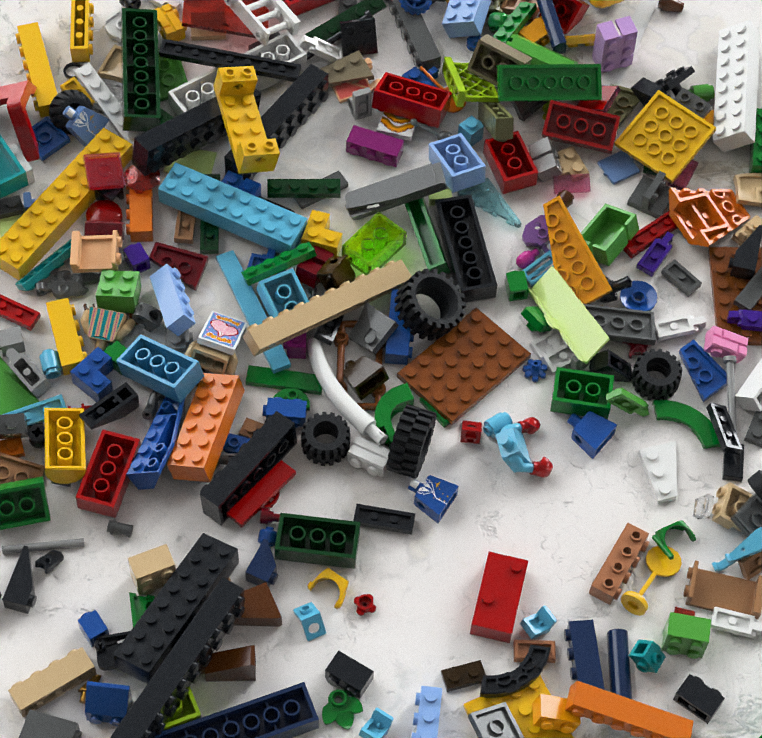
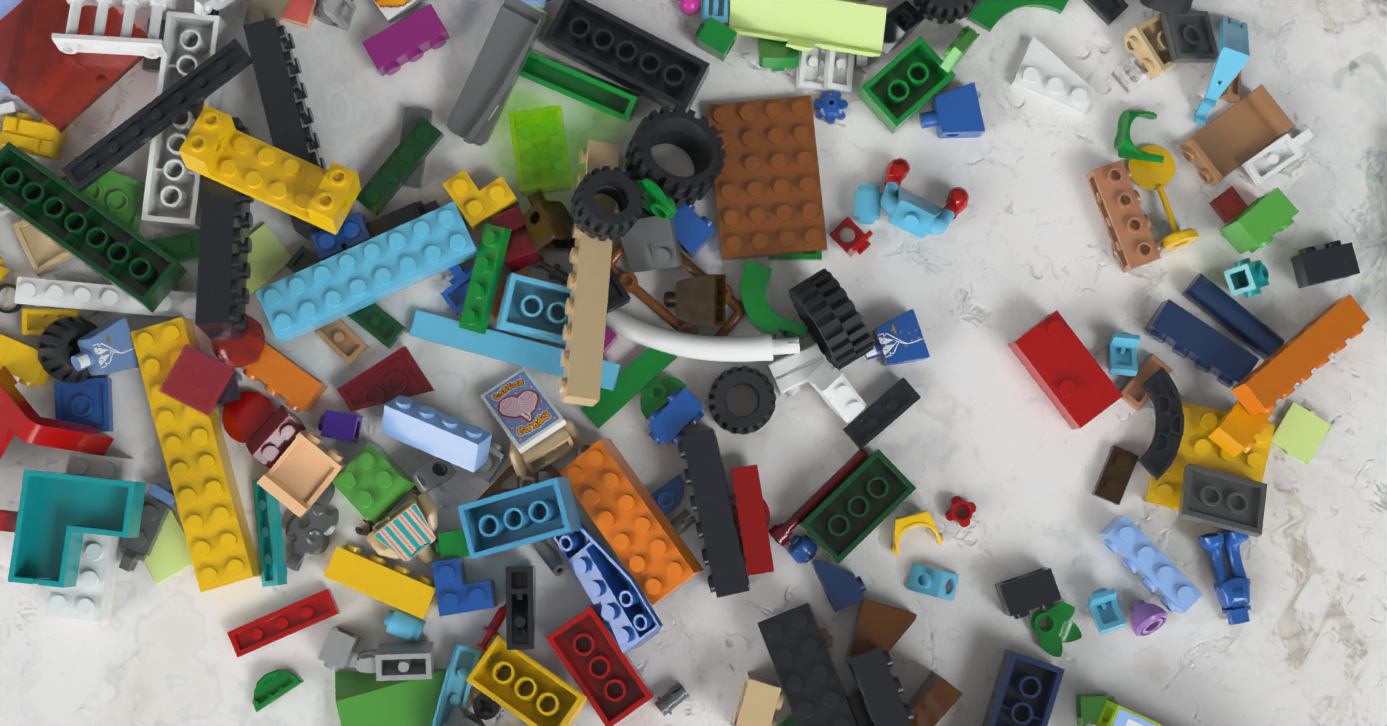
camera: 50 degrees left, 25 degrees up
(249, 427) = (662, 467): medium nougat plate -> none
(374, 479) = (836, 391): none -> white brick
(378, 272) = (618, 187): none -> black tyre
(395, 310) = (656, 201): none -> green plate

